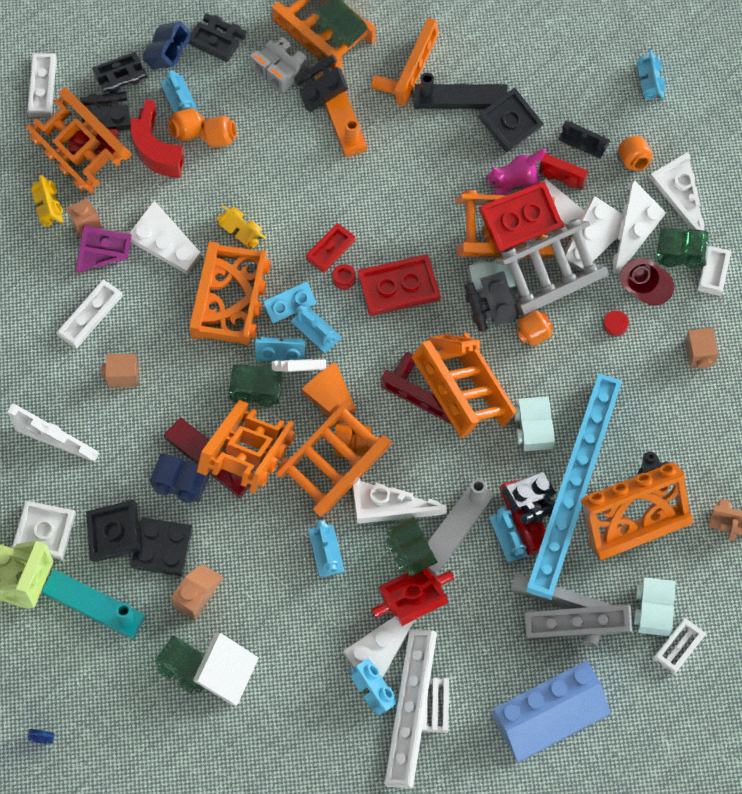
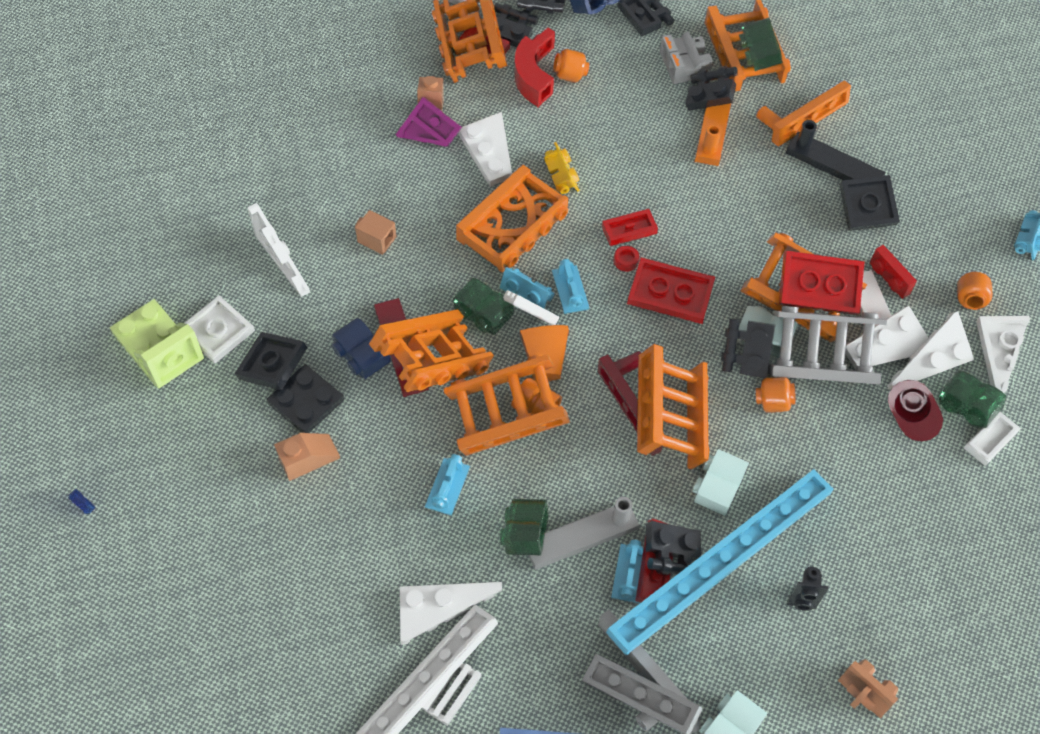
camera: 30 degrees right, 5 degrees down
(45, 192) = (413, 68): yellow hinge -> none
(89, 314) = (383, 174): white tile -> none
(93, 604) = (212, 415): teal piece -> none
(177, 92) = (582, 37): medium azure hinge -> none
(180, 662) = (249, 513): clear green brick -> none
(218, 131) = (595, 84): orange head -> none
(225, 669) = (279, 538): white tile -> none
(287, 302) = (555, 250): medium azure hinge -> none
(367, 676) = (404, 627): medium azure hinge -> none
(382, 503) = (528, 474): white wing -> none
(413, 596) = (497, 574): red plate -> none
(454, 343) = (687, 365): orange tile -> none
(519, 172) = (851, 248): dark pink animal -> none
(584, 139) = (931, 255): black hinge -> none
(616, 323) = (861, 434): red tile -> none
(649, 527) = (757, 594): orange fence -> none
(701, 348) = (934, 502): nougat brick -> none

